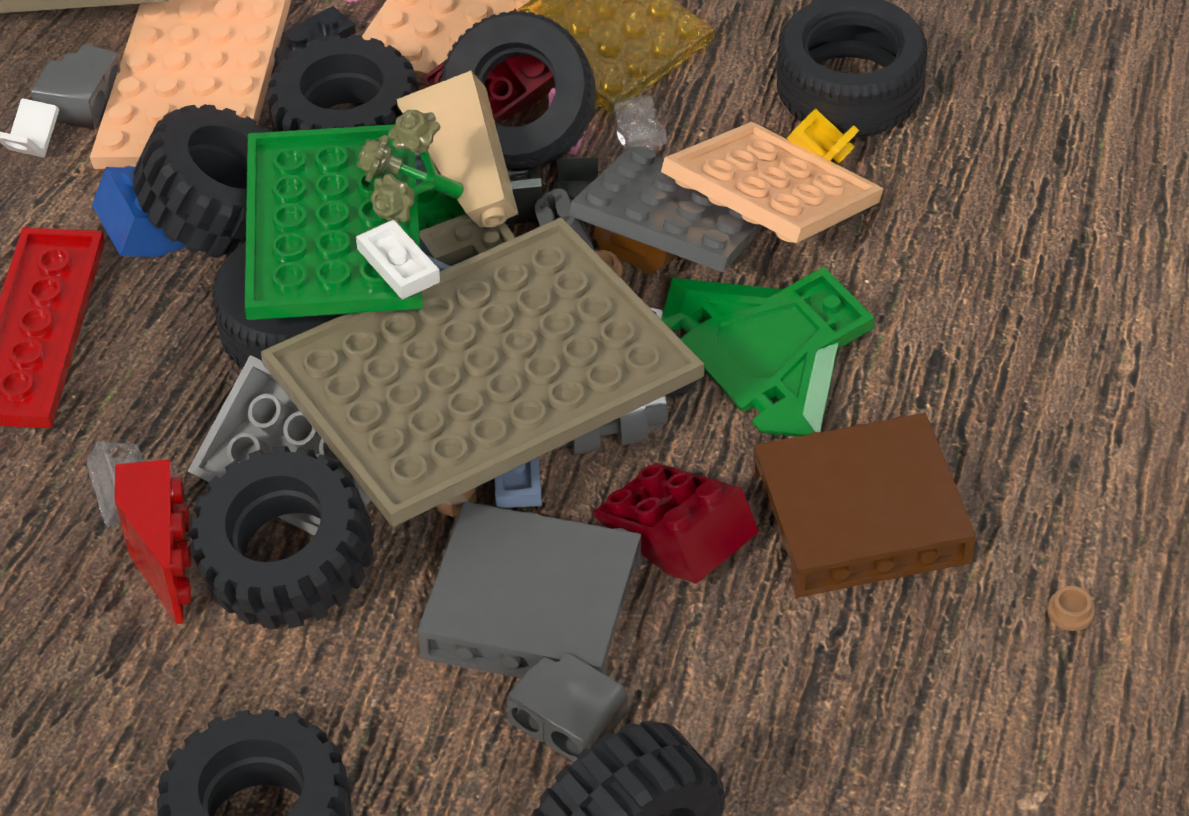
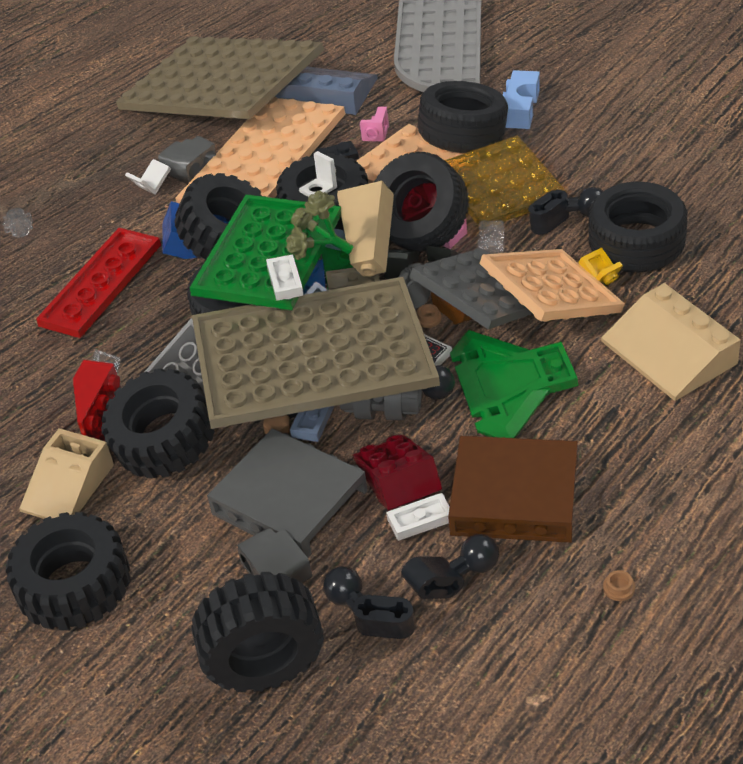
camera: 25 degrees right, 5 degrees down
(164, 660) = (66, 474): none -> tan slope
(353, 78) = (325, 175): none -> white bracket
(710, 54) = (555, 206): none -> black beam
(745, 581) = (419, 516): none -> white plate
(769, 735) = (372, 613): none -> black beam
(824, 665) = (439, 579): none -> black beam
(977, 232) = (672, 342): none -> tan slope

